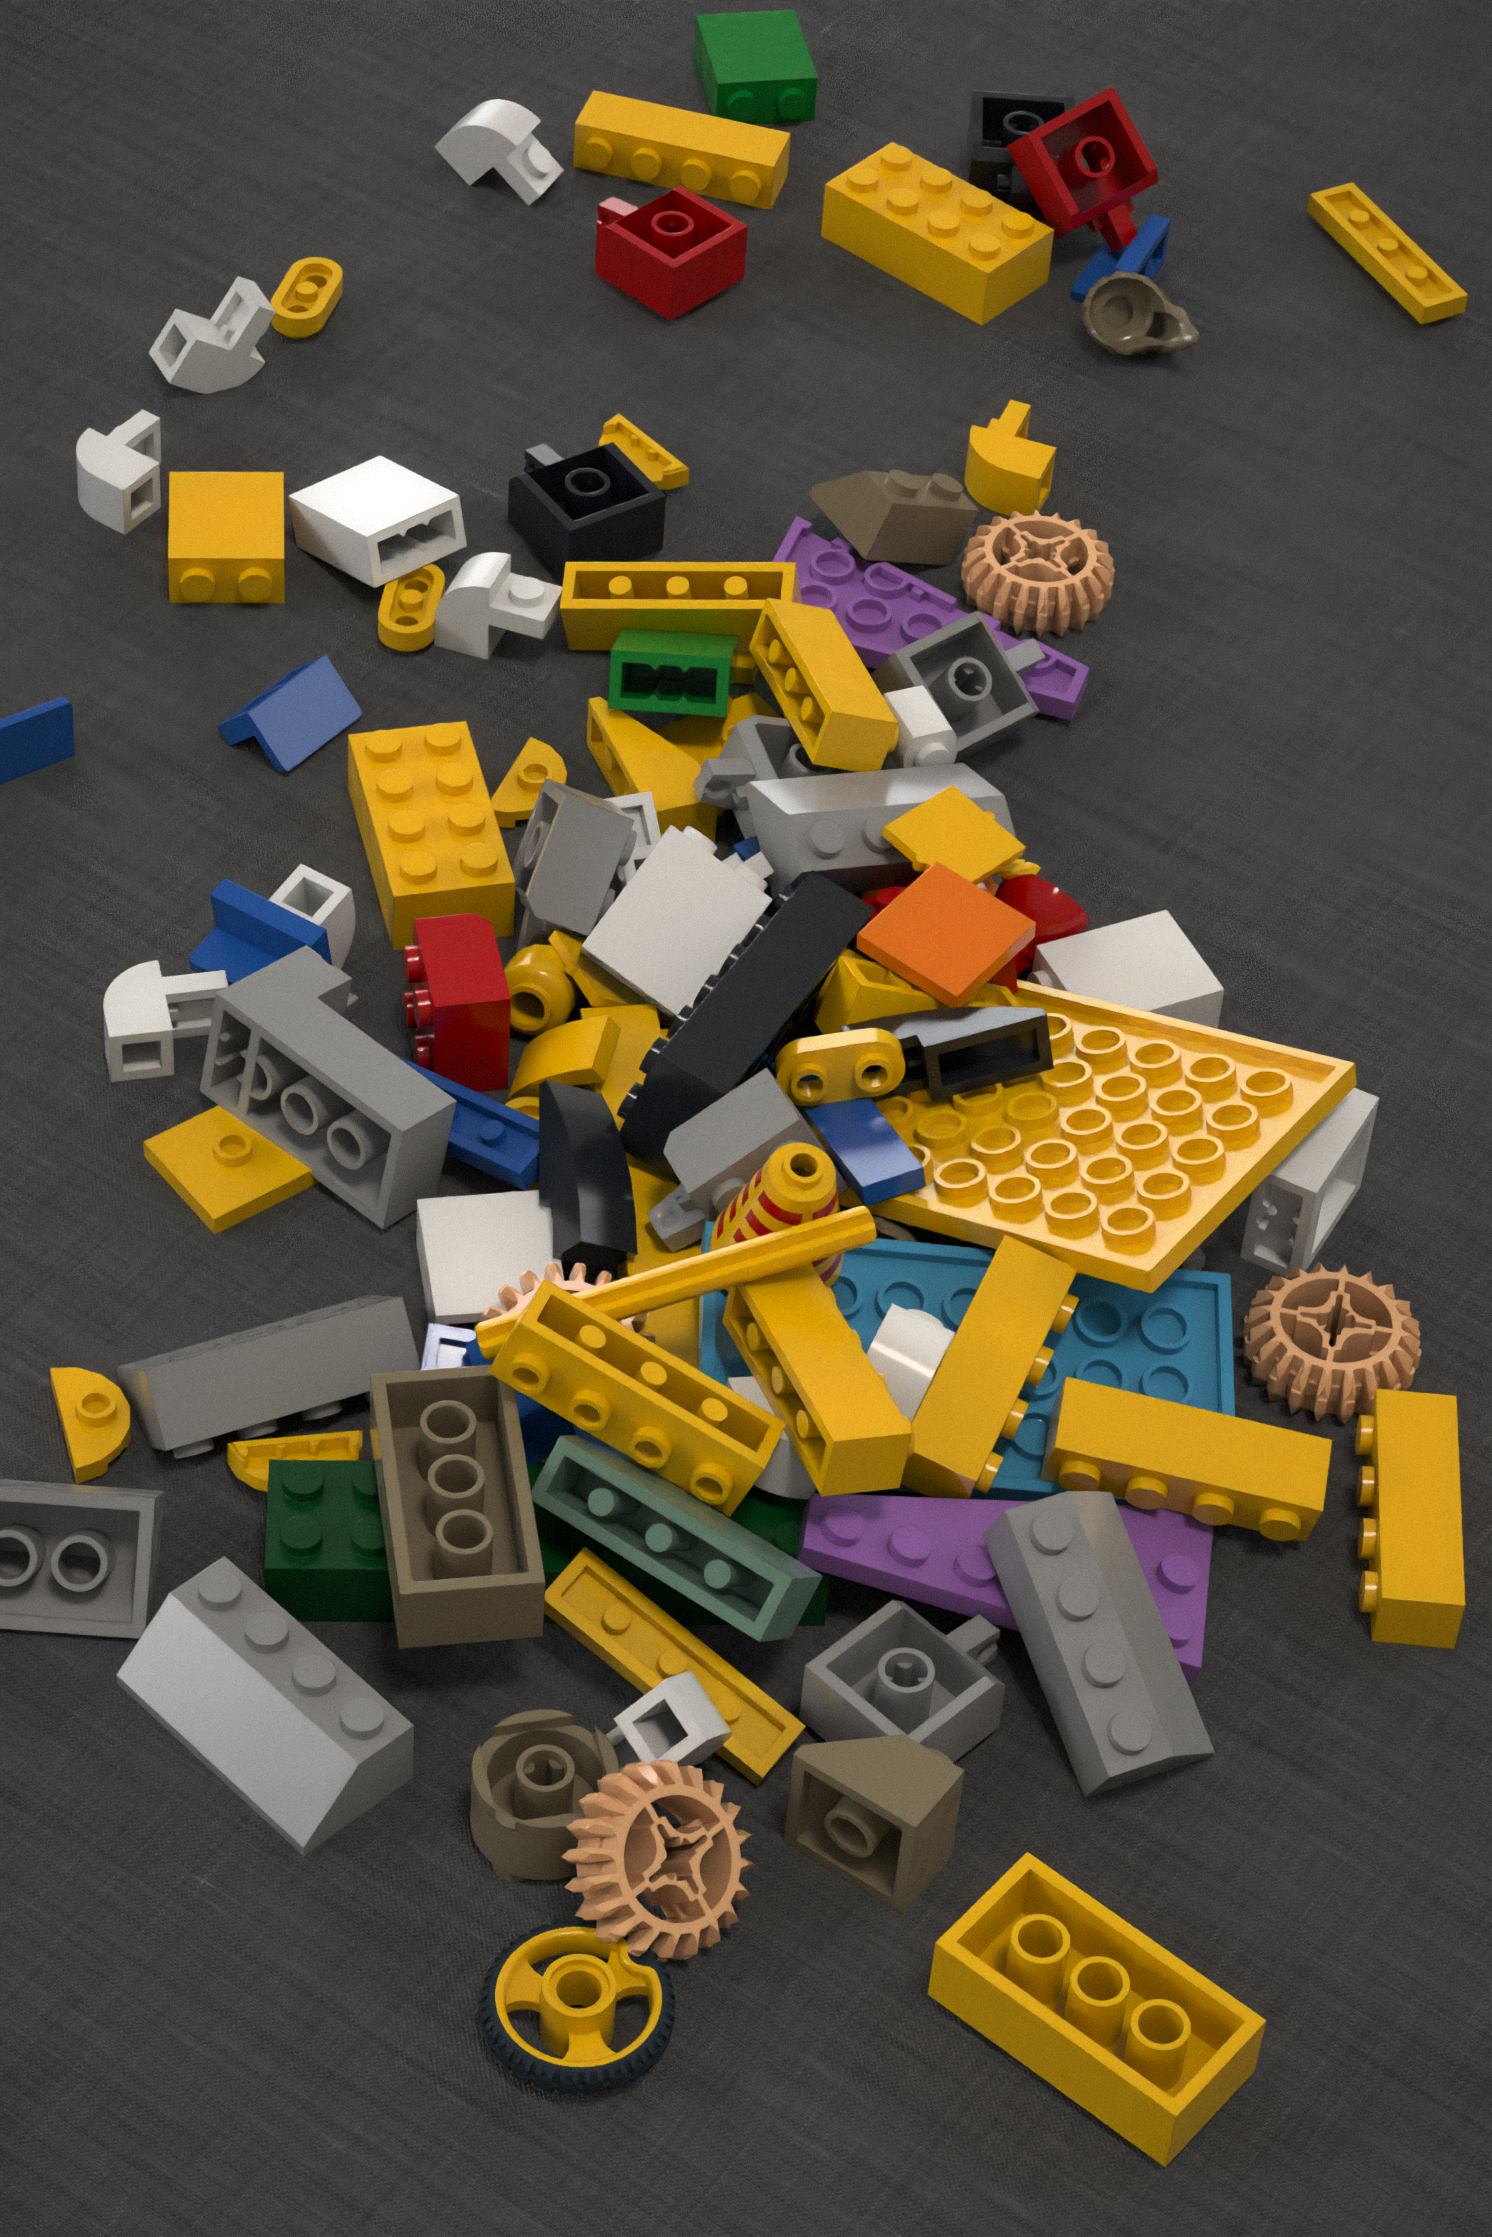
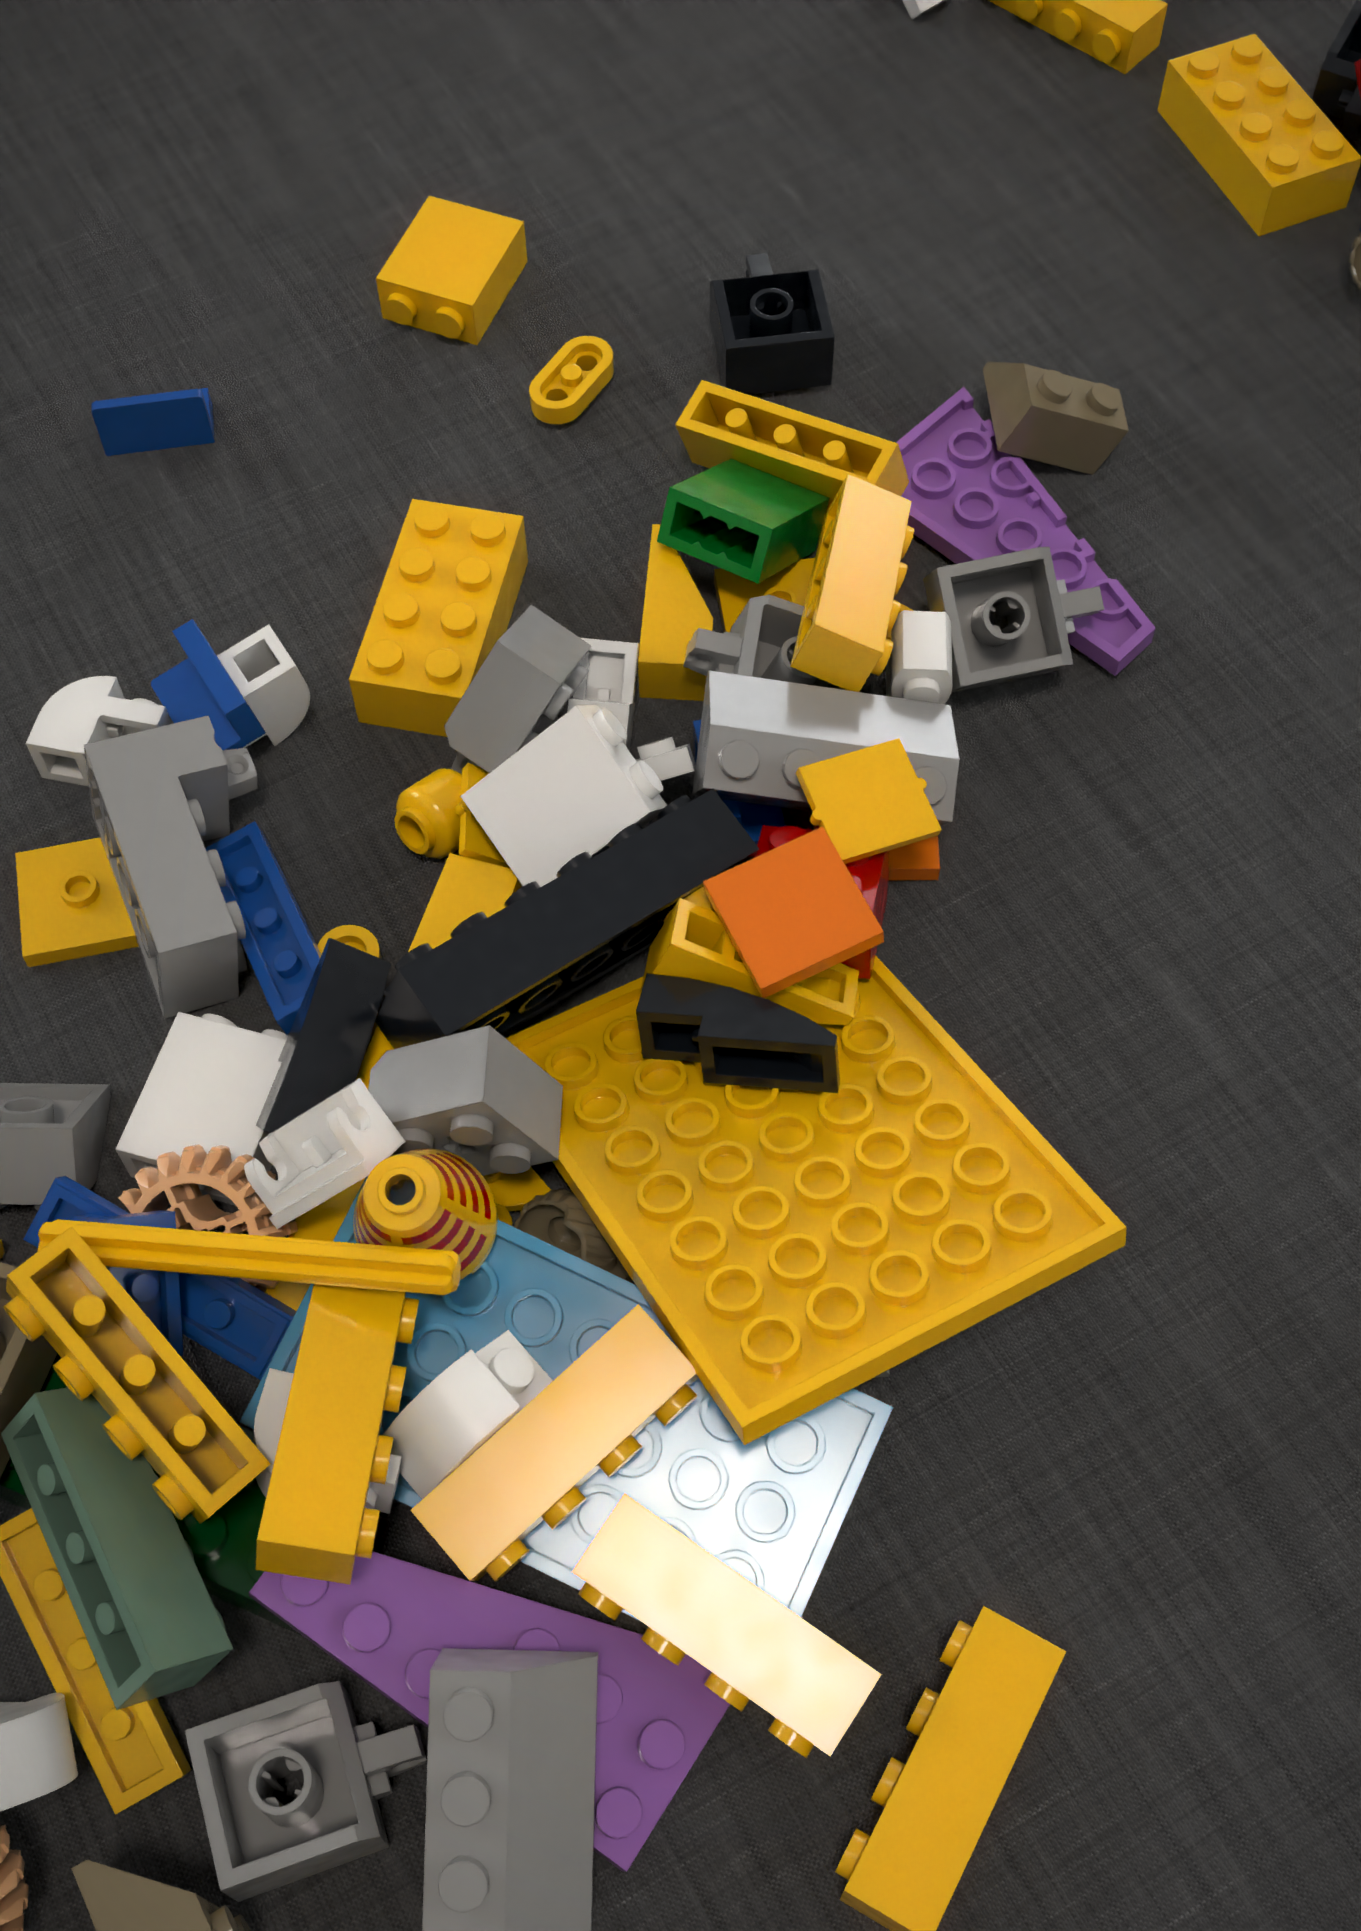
camera: 30 degrees right, 15 degrees up
(121, 472) = (403, 177): white brick -> none
(217, 351) = (550, 91): white brick -> none
(295, 714) = (408, 461): blue panel -> none
(307, 297) = (662, 59): yellow plate -> none
(377, 521) = (581, 290): white brick -> none
(458, 1001) = (341, 808): red hinge -> none
(490, 600) = (629, 403): white brick -> none
(523, 782) = (574, 592): yellow plate -> none
(567, 1055) = (405, 906): yellow slope -> none
(645, 453) = (856, 289): yellow plate -> none
(663, 1216) = (322, 1152): none -> white hinge
(669, 250) = (997, 92): red hinge -> none
(840, 1066) = (614, 1023): yellow plate -> none
(864, 1147) = (599, 1090): blue tile -> none
(1006, 468) = (1194, 387): yellow brick -> none
(1037, 573) = (1162, 510): light nougat gear -> none
(1042, 902) = (936, 897): red hat -> none
(1136, 965) = (1004, 996): white brick -> none
(1291, 1334) = (1002, 1528): light nougat gear -> none
(1310, 1188) = (1048, 1326): white window -> none

